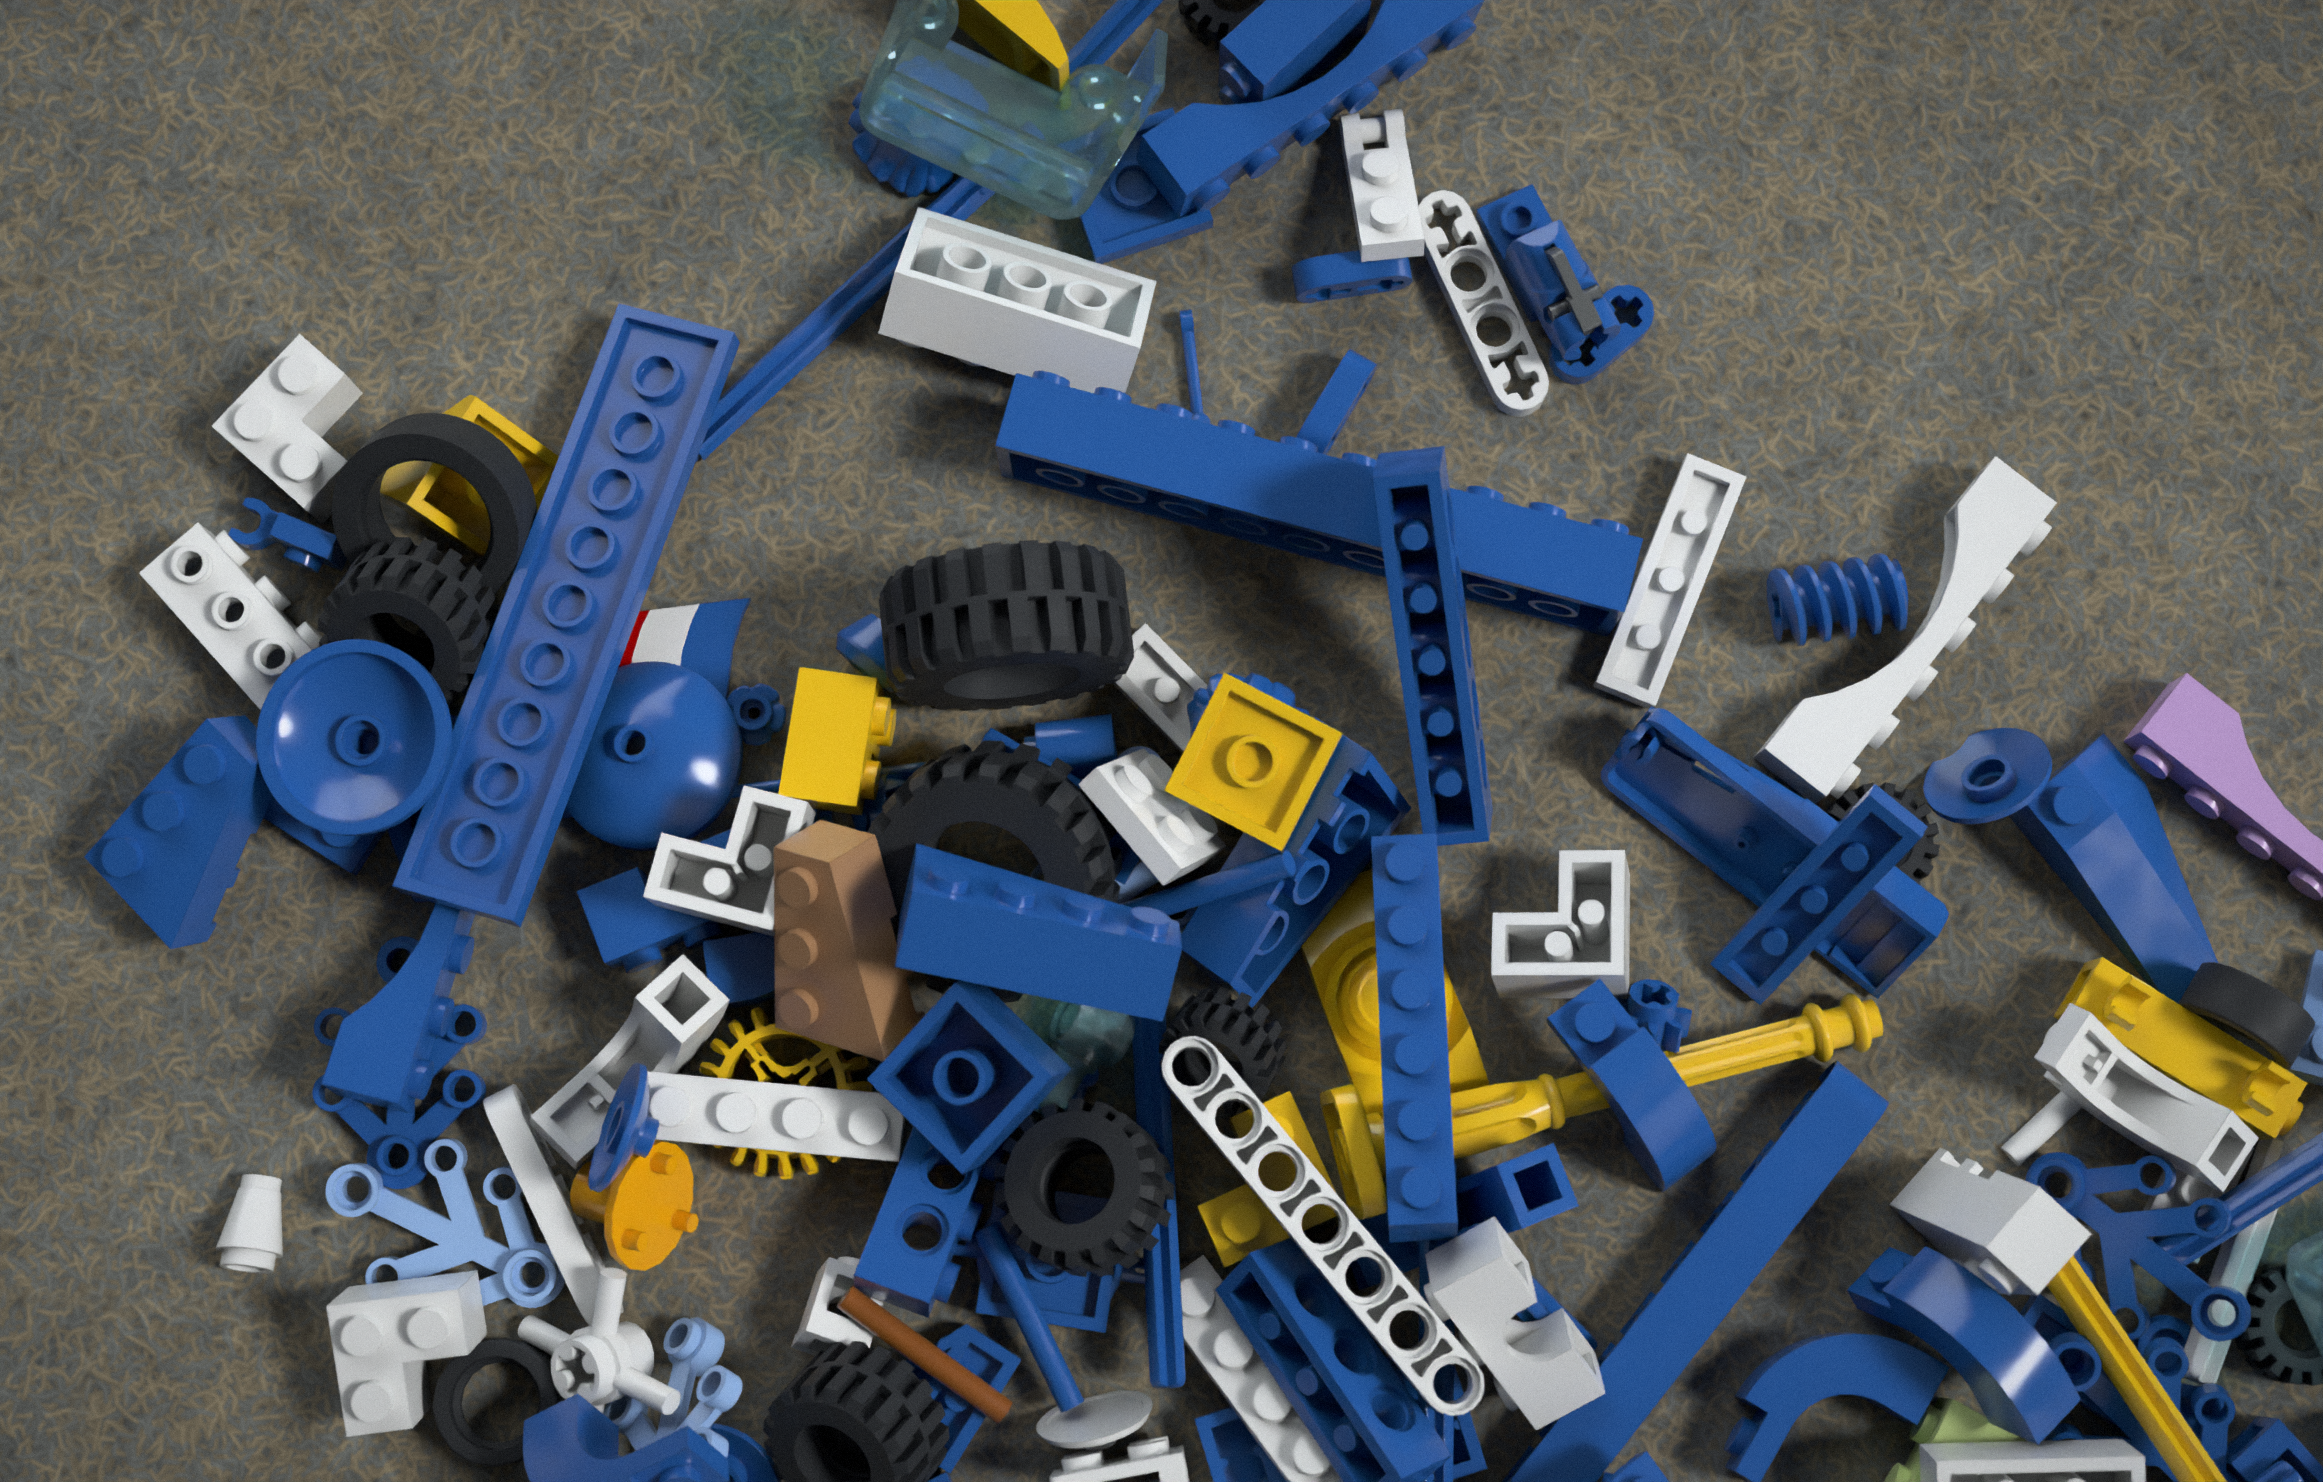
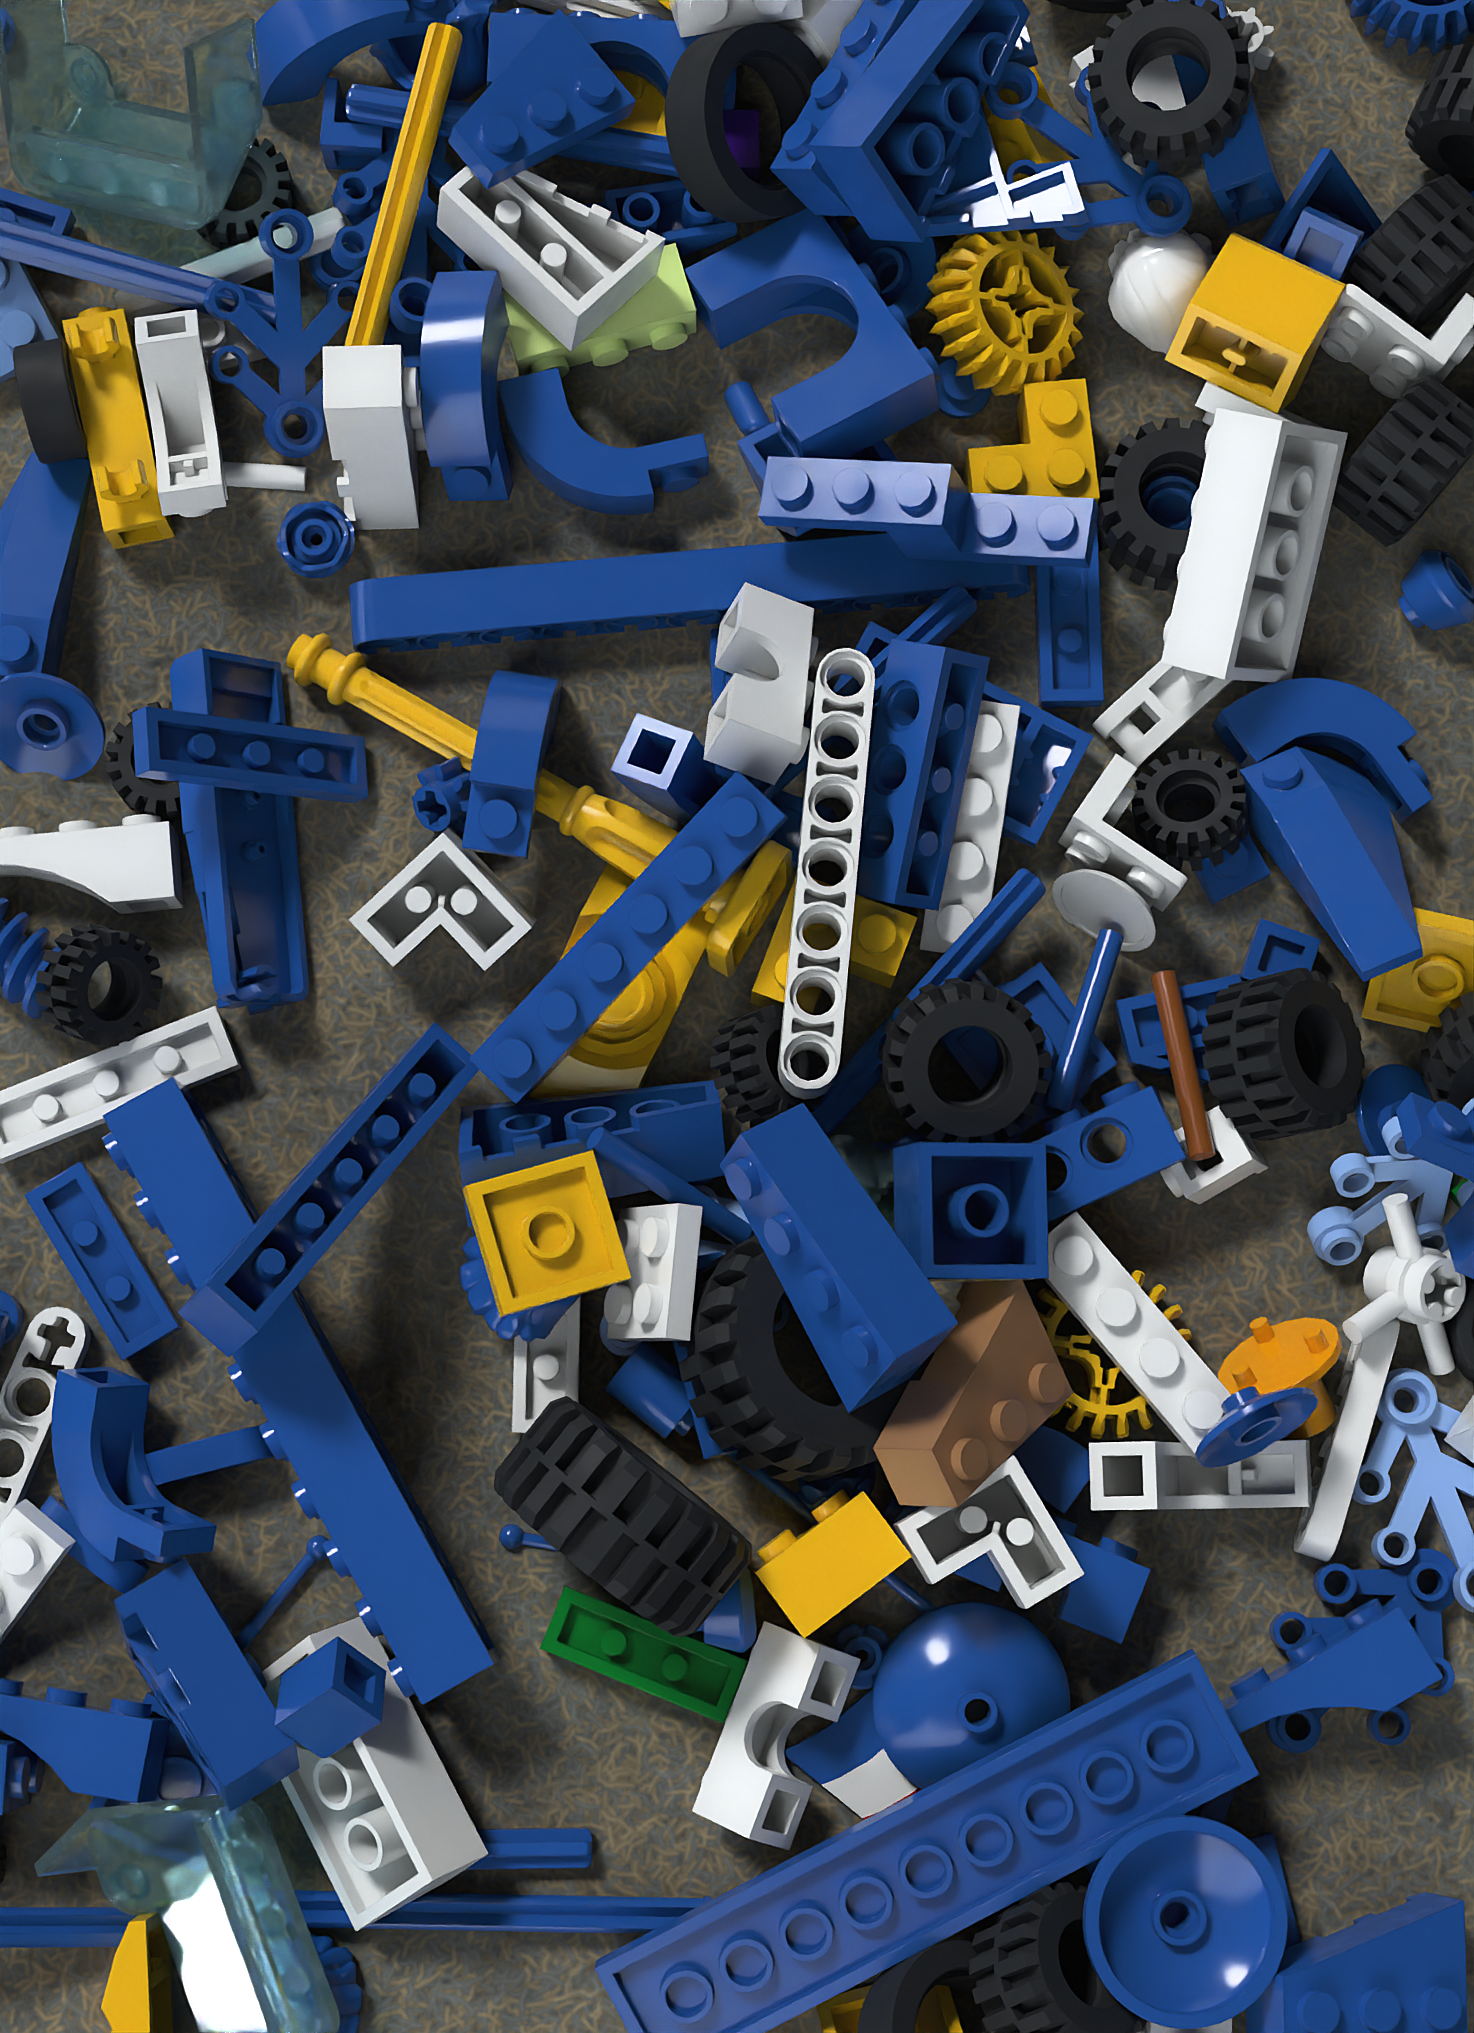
camera: 140 degrees left, 0 degrees up
(749, 552) = (748, 1774): none -> white arch
(853, 584) = (643, 1654): none -> green plate
(854, 376) = (535, 1848): none -> blue axle
(1082, 321) = (330, 1698): none -> blue panel
(1173, 255) = (205, 1684): none -> blue wedge
(1387, 323) = (105, 1471): none -> blue arch
(1544, 462) = (103, 1261): none -> blue plate
(1776, 628) = (70, 977): none -> black tyre
(1969, 1106) = (299, 529): none -> blue plate

